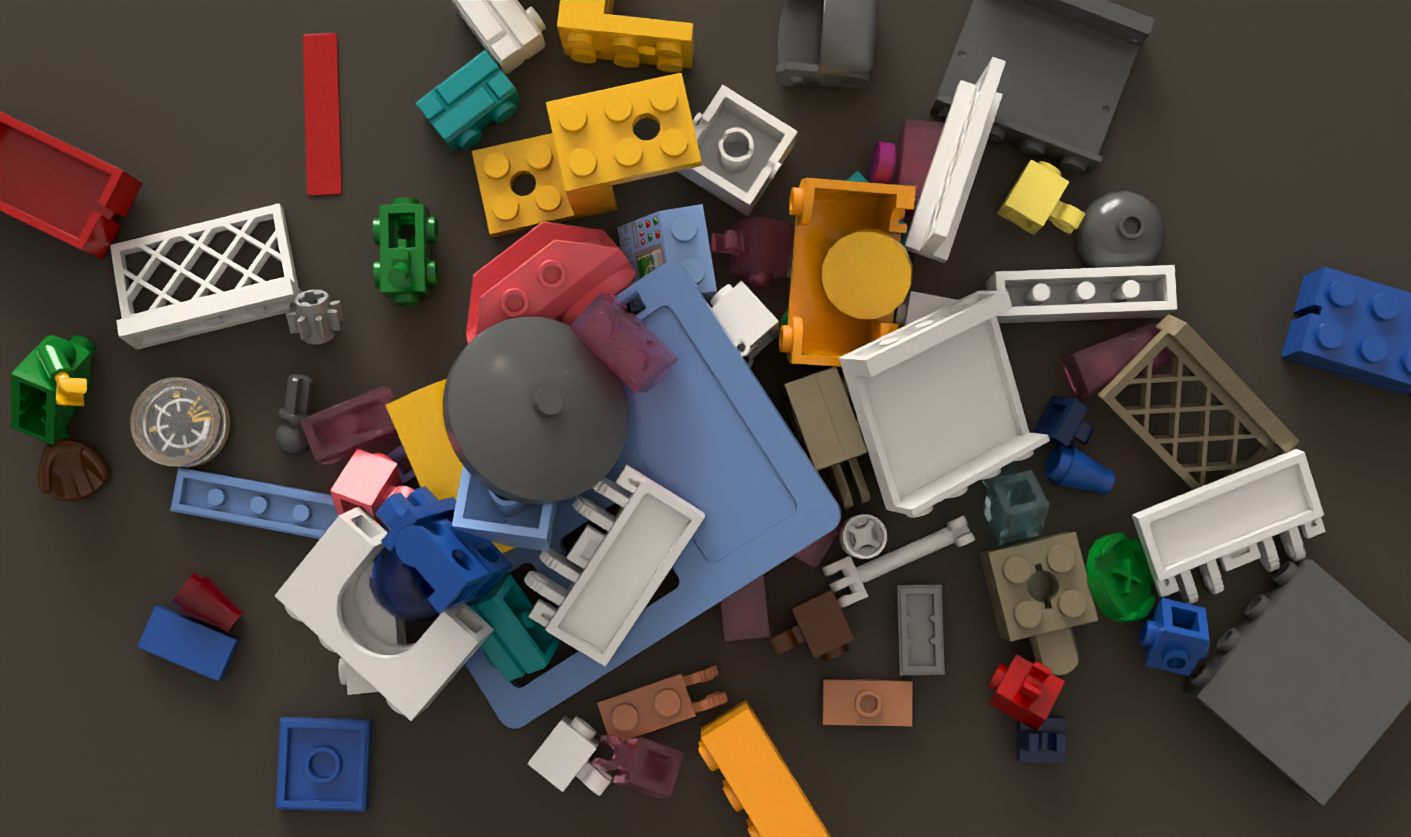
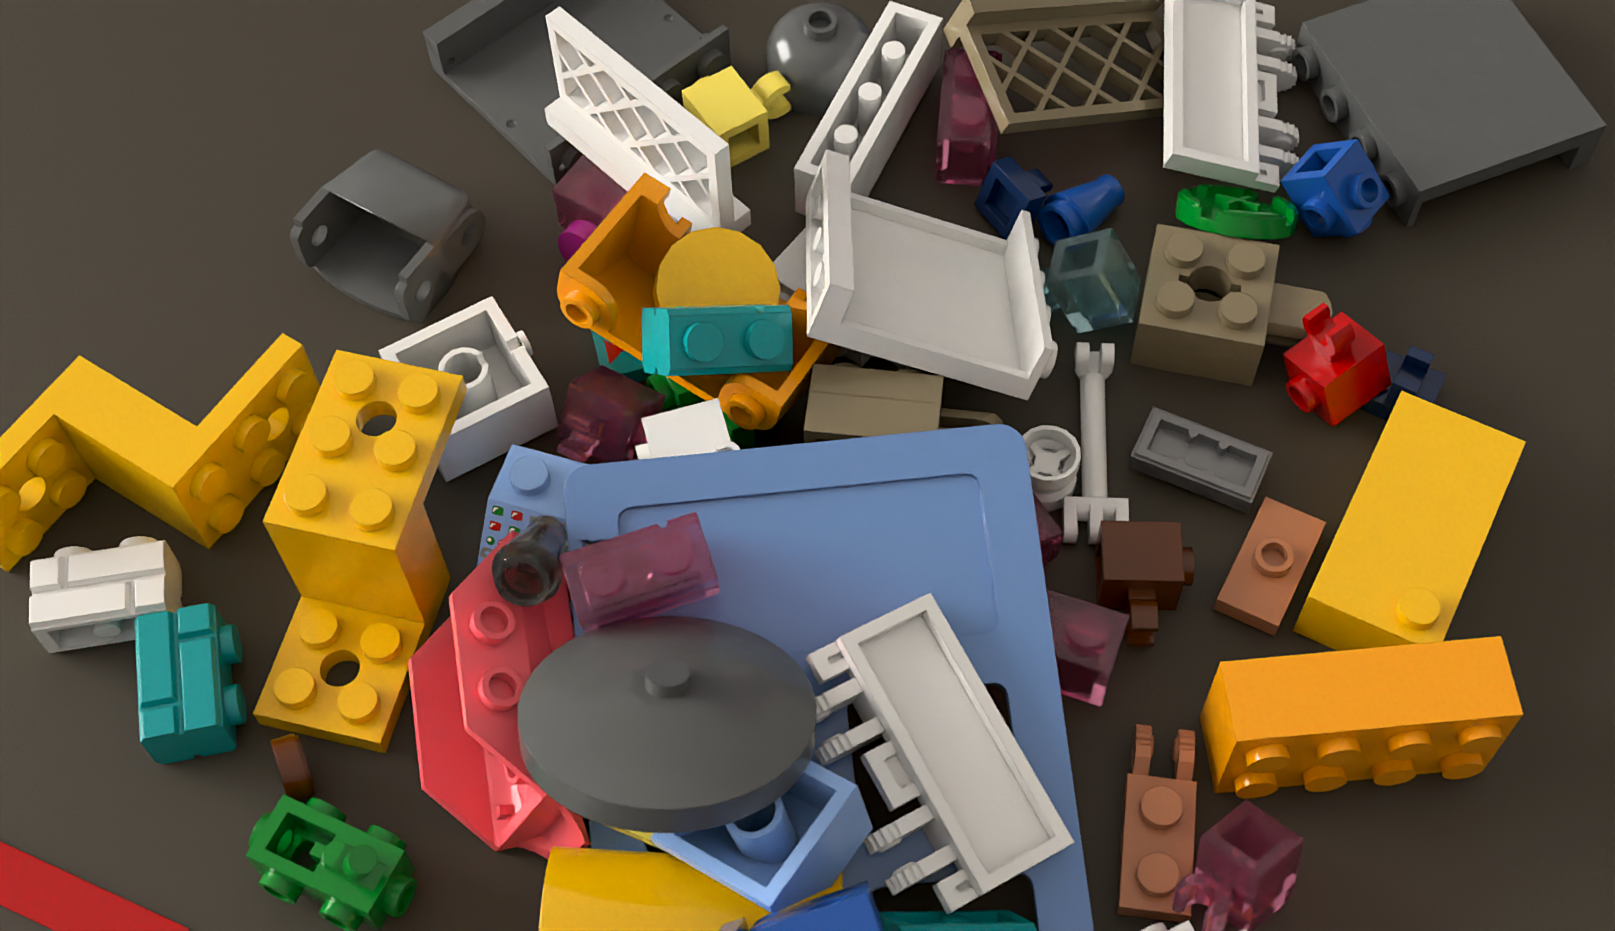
camera: 60 degrees left, 25 degrees down
(449, 194) = (293, 767): none -> reddish brown tile
(600, 274) = (530, 565): none -> clear smoke cone
(819, 298) = (716, 339): none -> teal brick
(925, 784) = (1410, 530): none -> yellow brick

